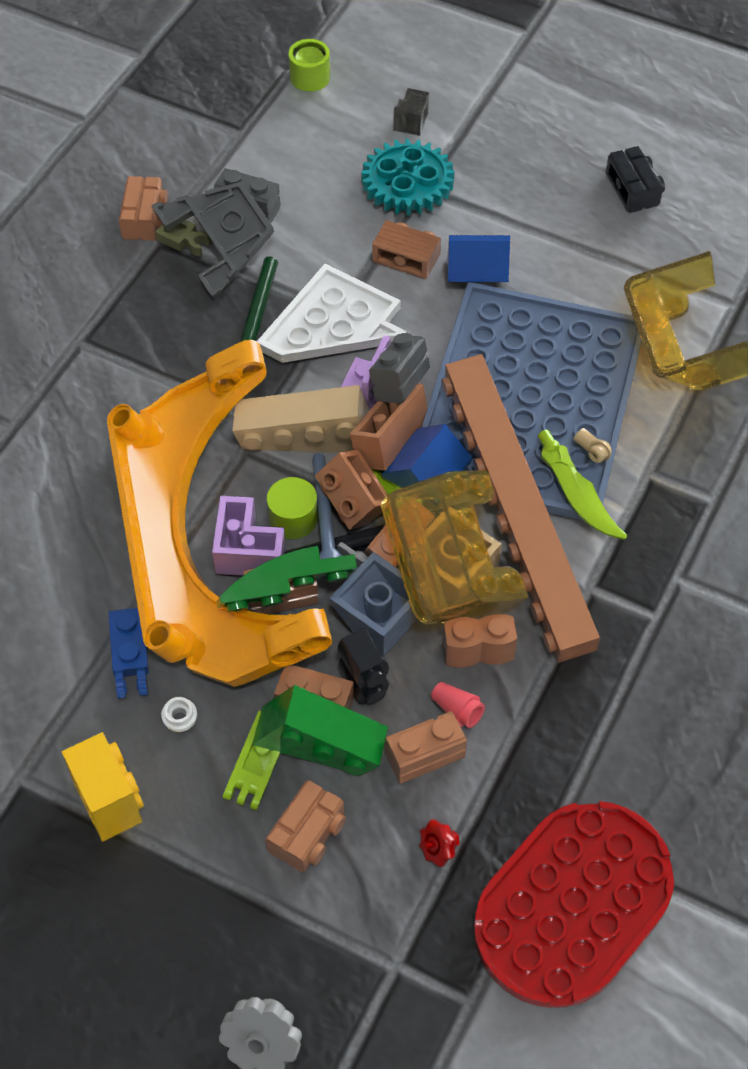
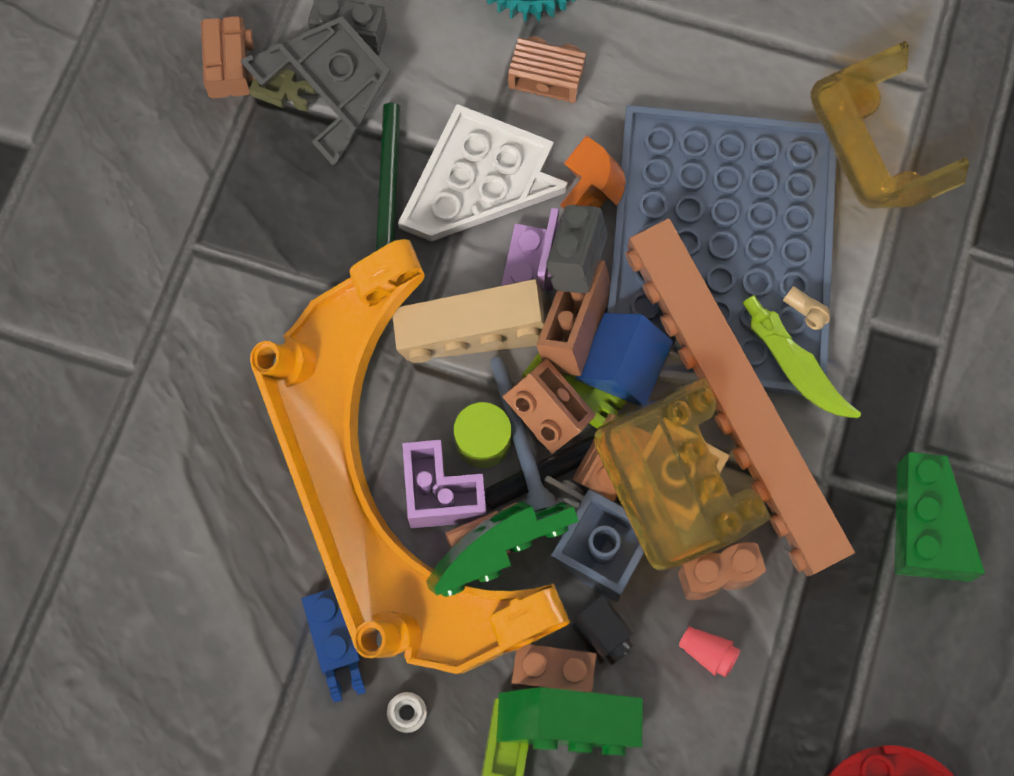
camera: 10 degrees left, 15 degrees up
(425, 747) = (686, 712): nougat brick -> none
(432, 324) = (598, 174): none -> orange brick
(478, 258) = (635, 78): blue slope -> none
(676, 632) = (931, 522): none -> green wedge

